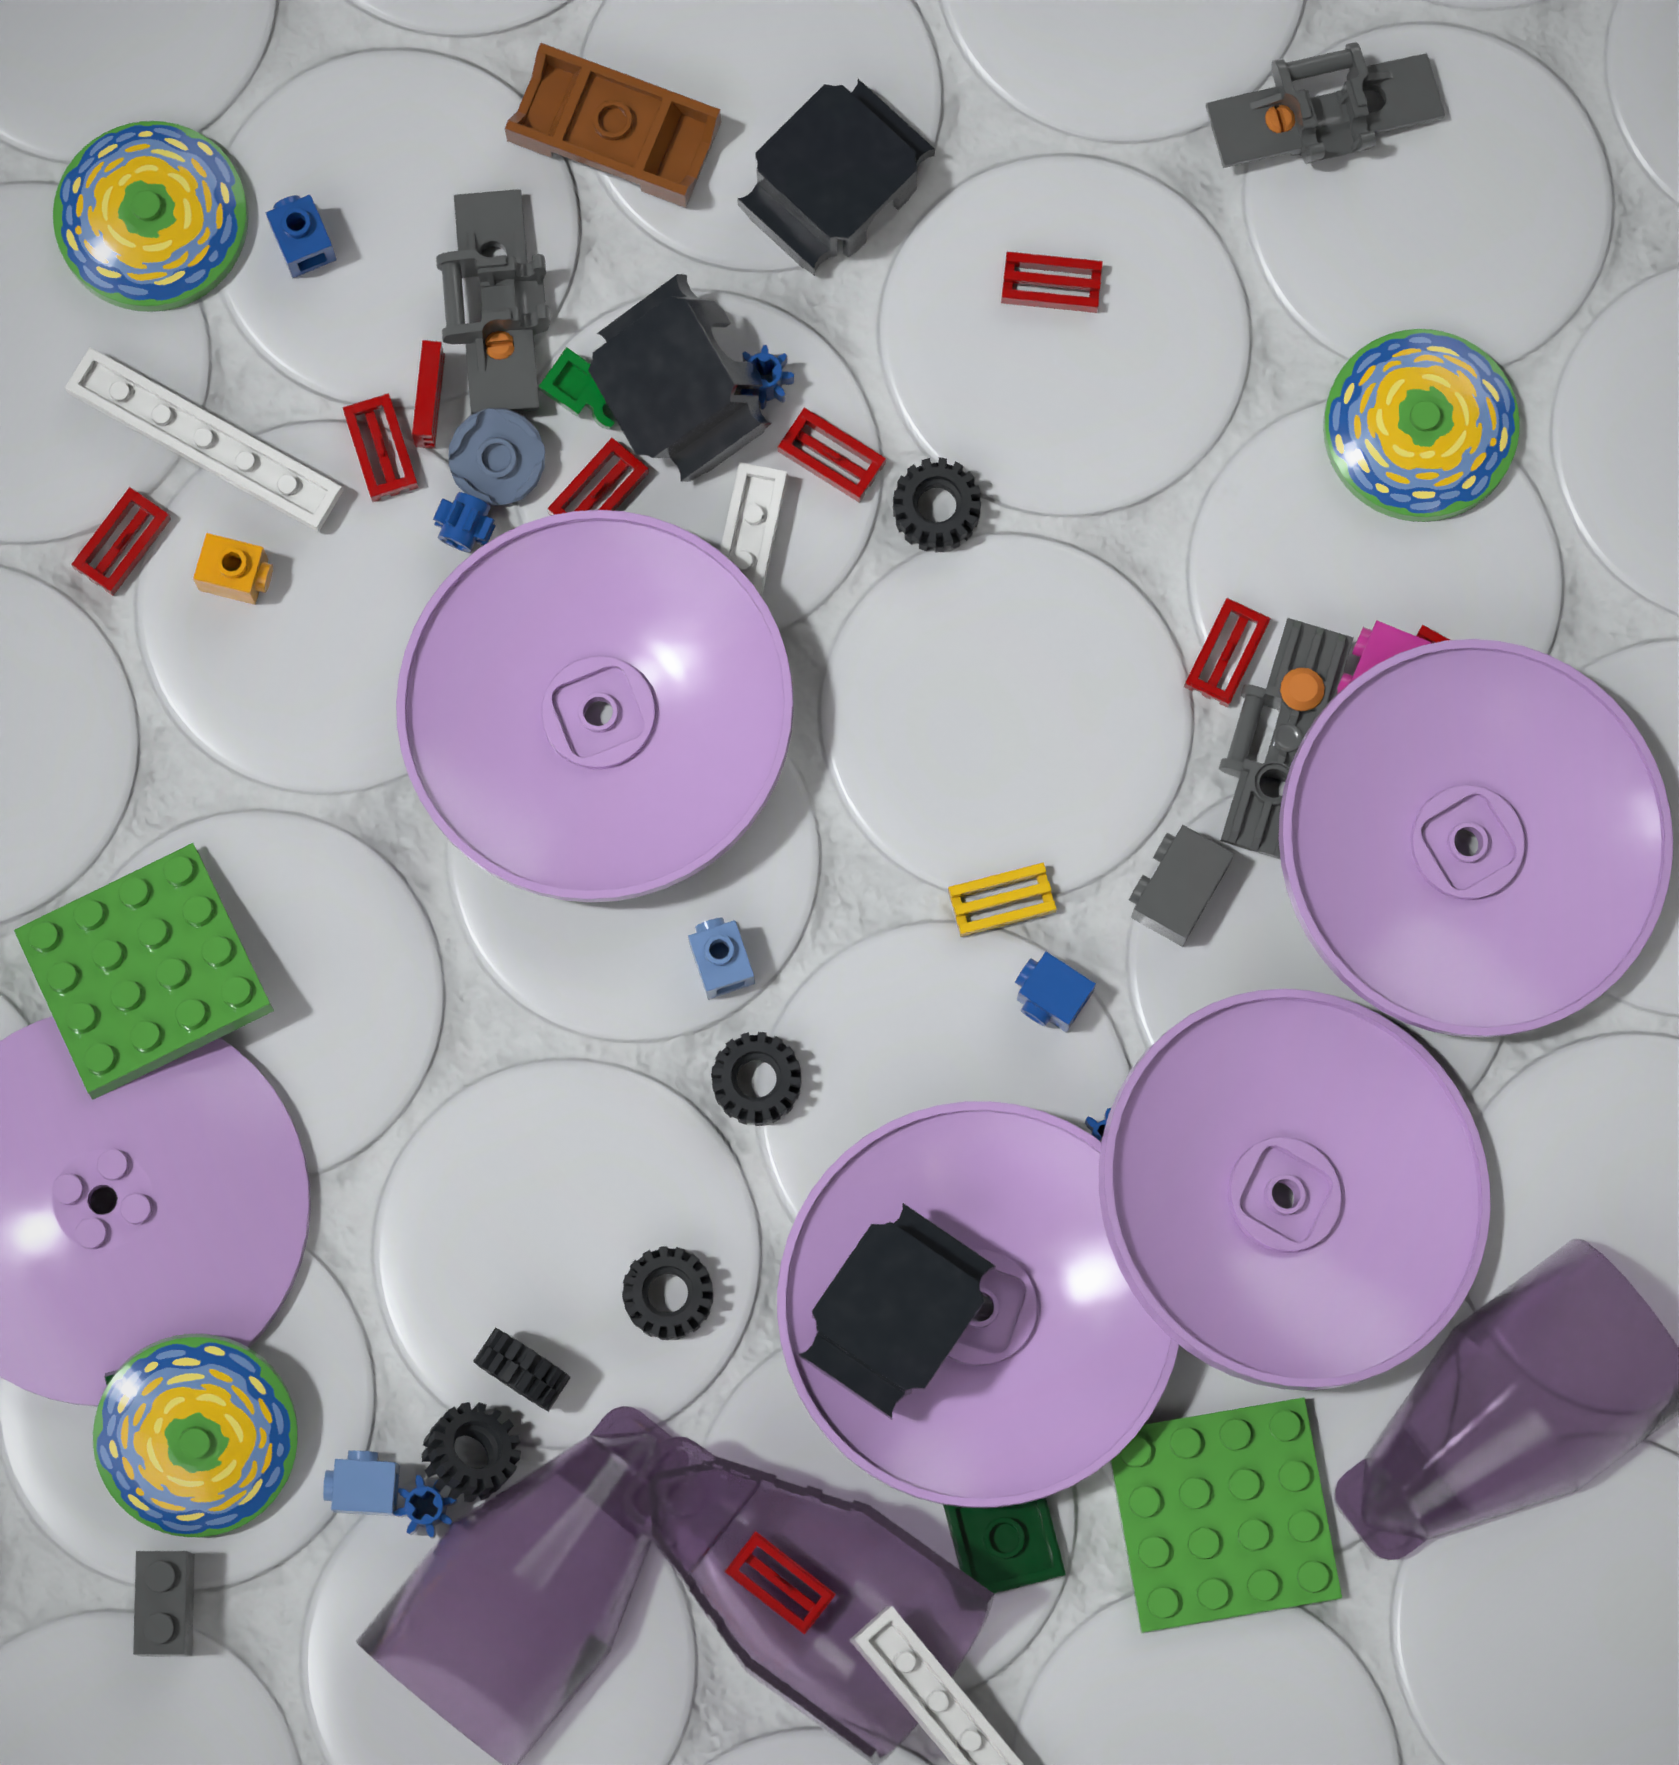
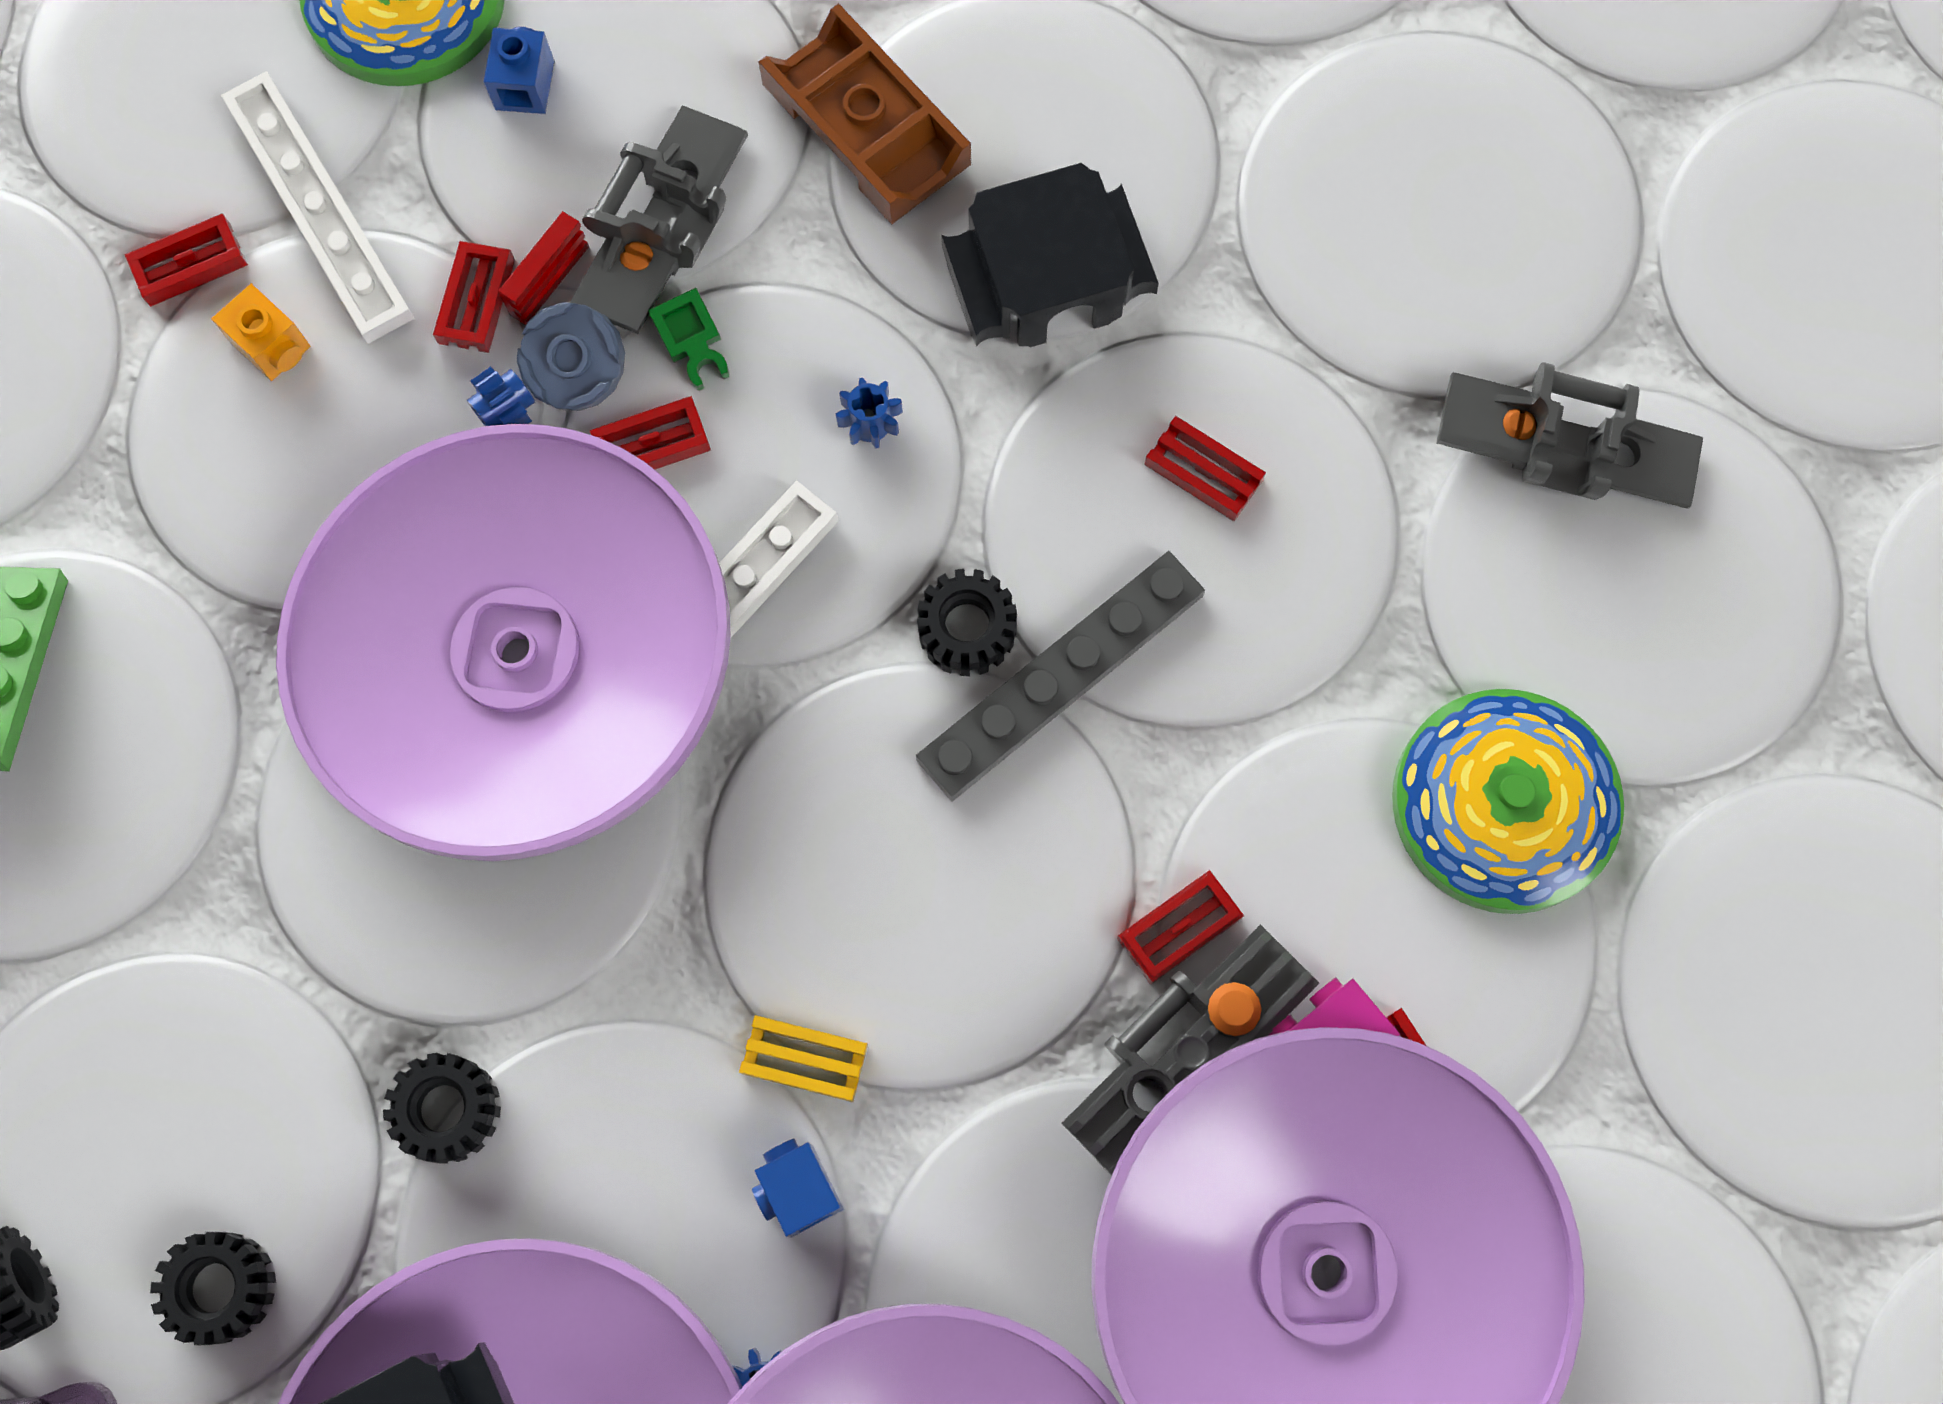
camera: 30 degrees right, 5 degrees down
(675, 382) = (766, 364): black piece -> none
(720, 957) = (481, 961): medium blue brick -> none
(839, 437) = (914, 561): red tile -> none
(1031, 507) = (1059, 676): none -> dark grey plate
(1181, 884) = (995, 1146): dark grey brick -> none

